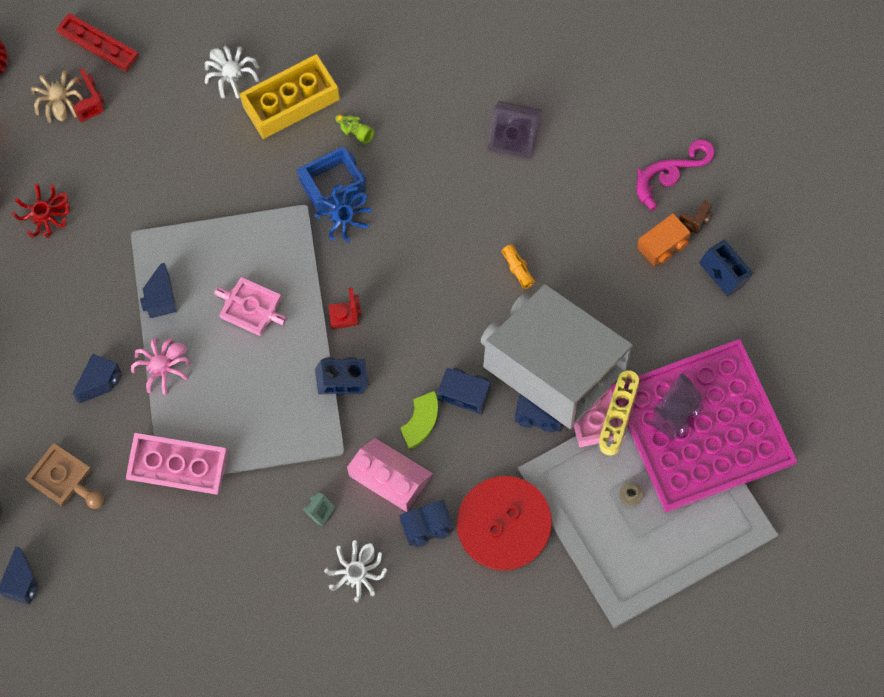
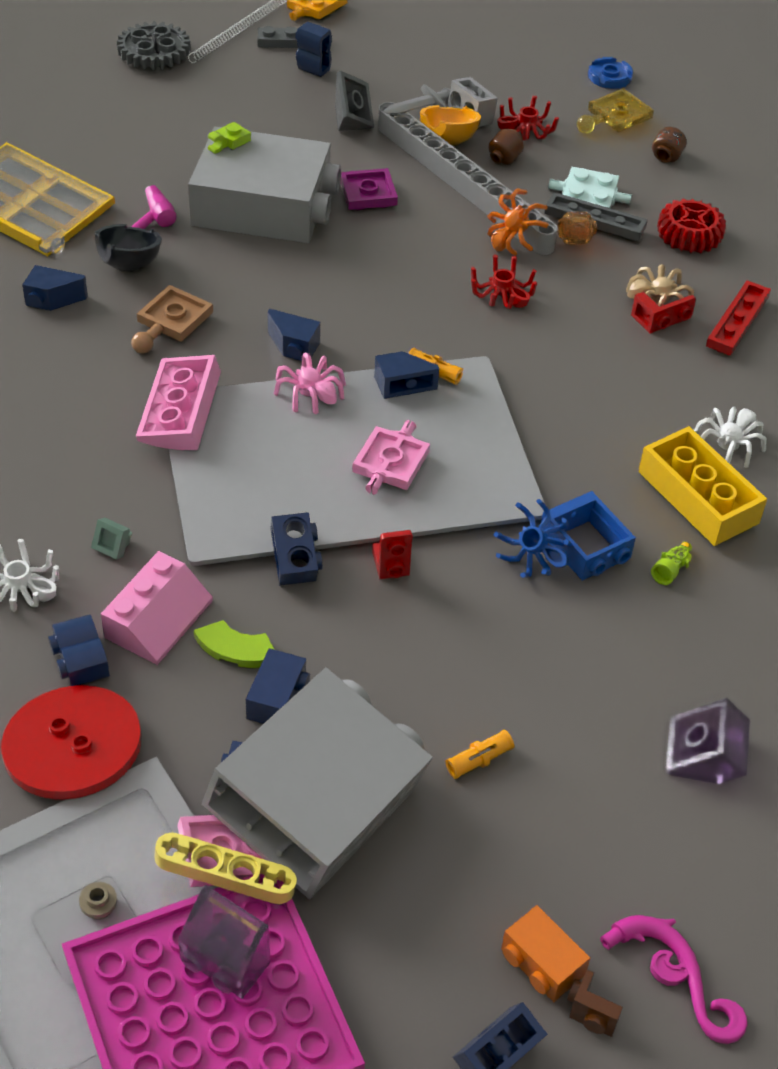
camera: 80 degrees right, 20 degrees down
(148, 269) = (446, 370): none -> light orange pin

